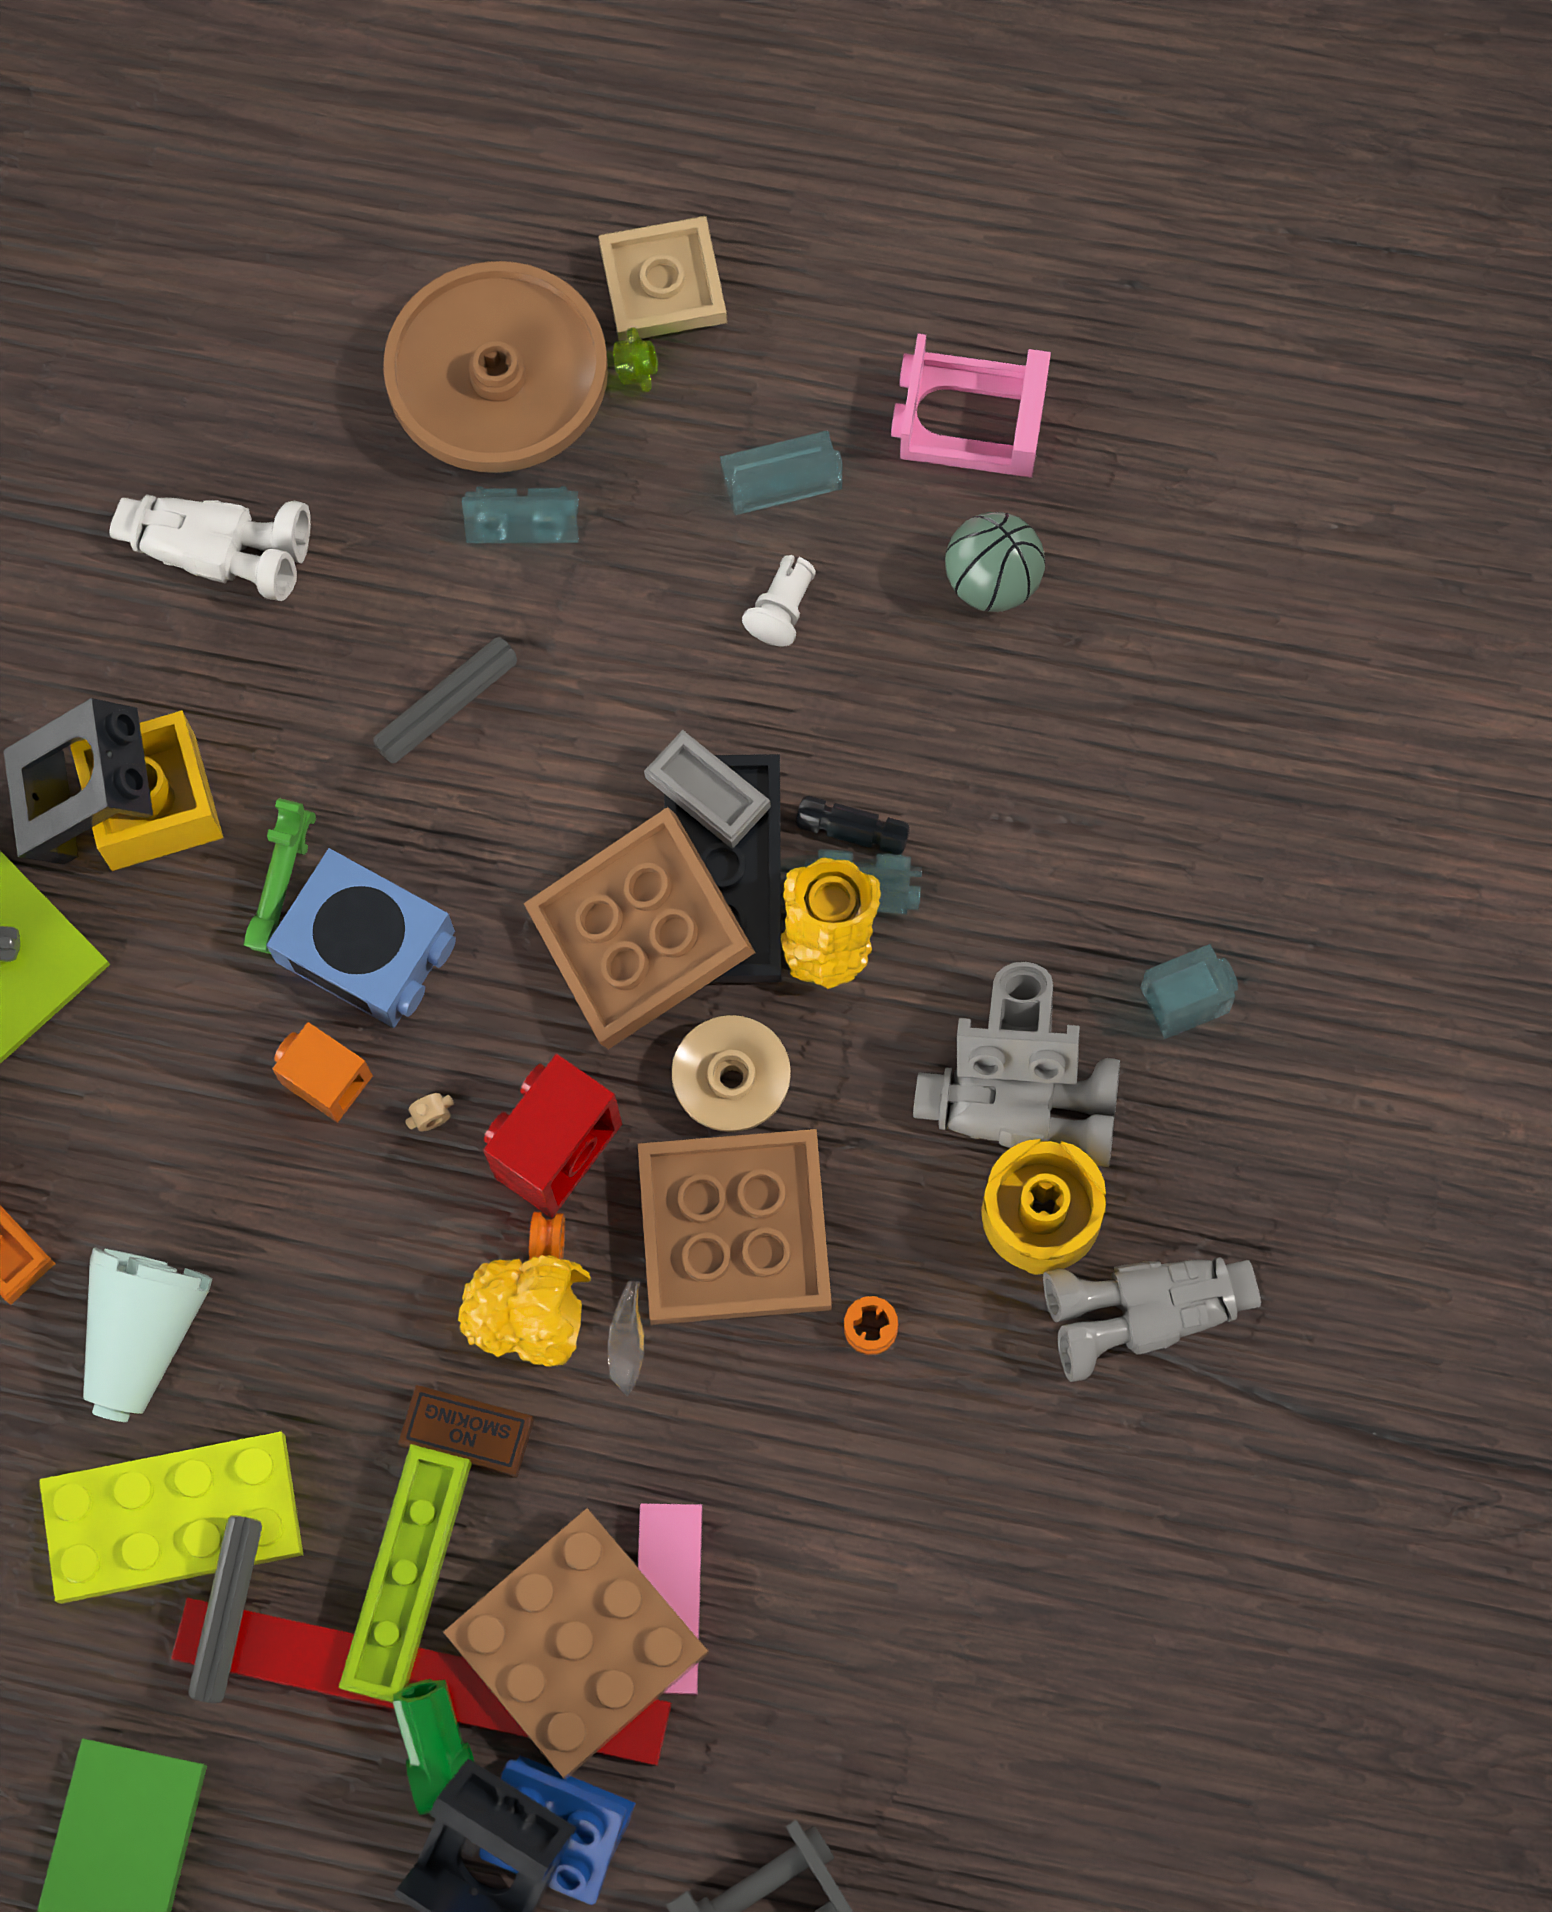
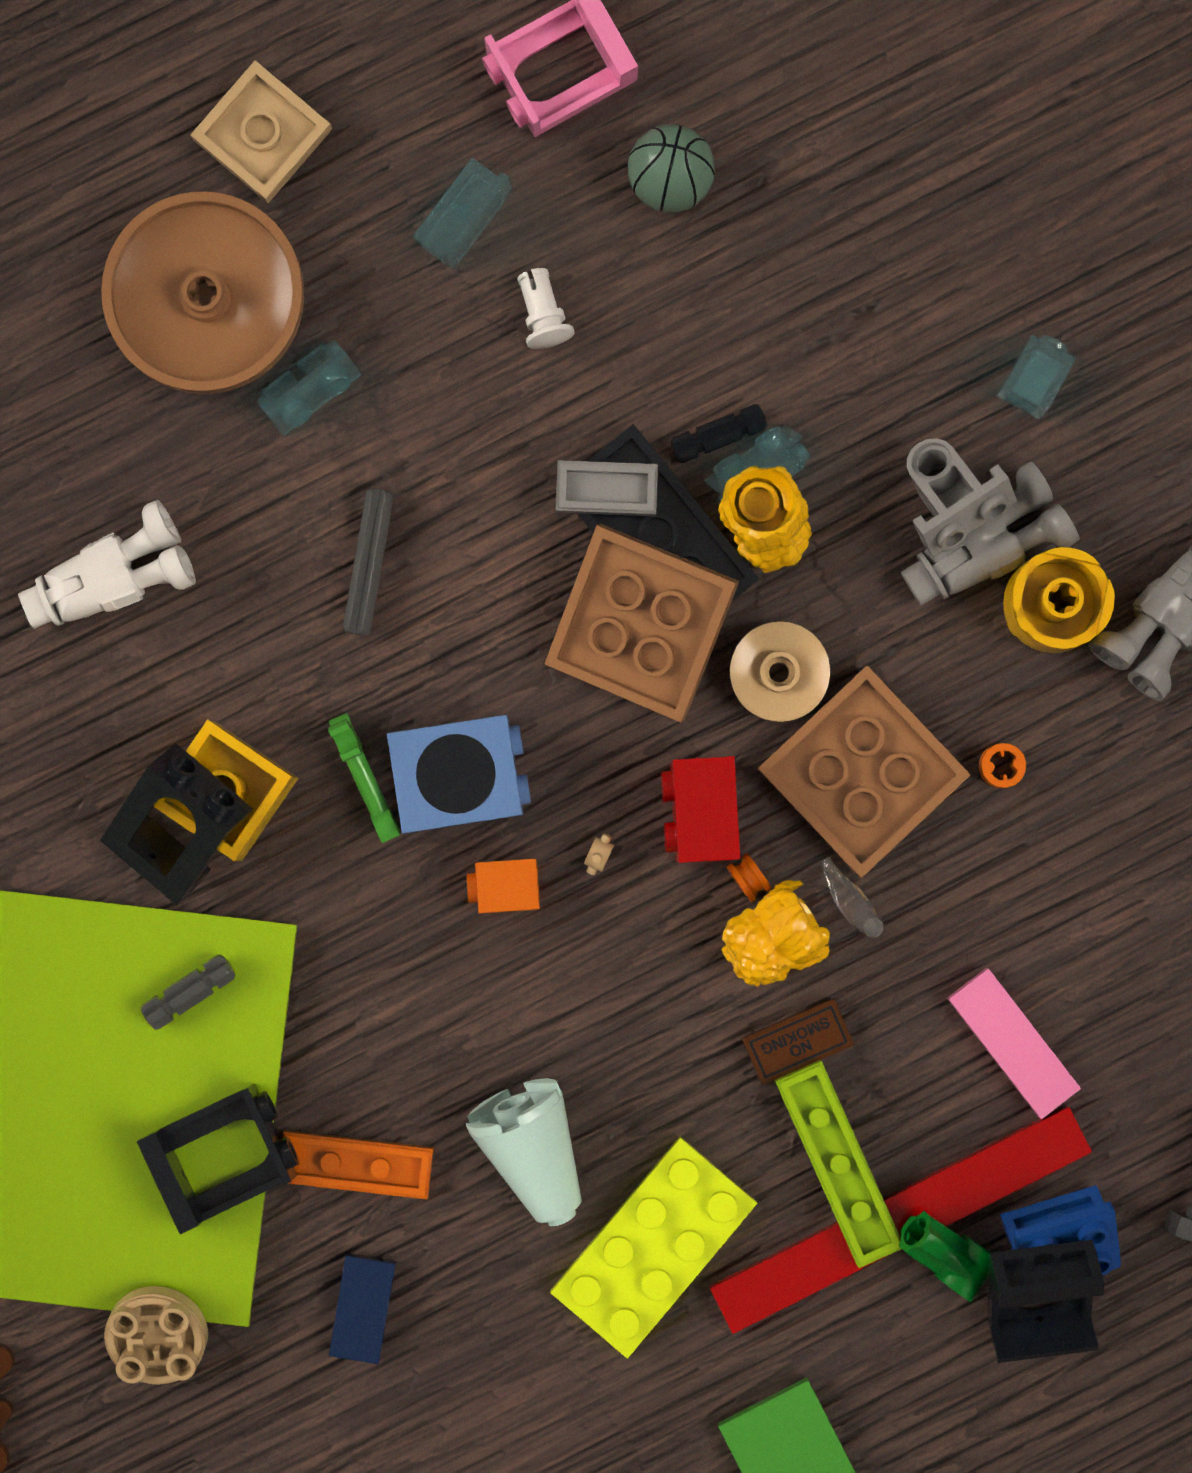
camera: 40 degrees left, 15 degrees up
(225, 1609) = (745, 1278): dark grey axle -> none
(576, 1643) = (983, 1120): medium nougat plate -> none
(635, 360) = (294, 209): clear neon green plate -> none

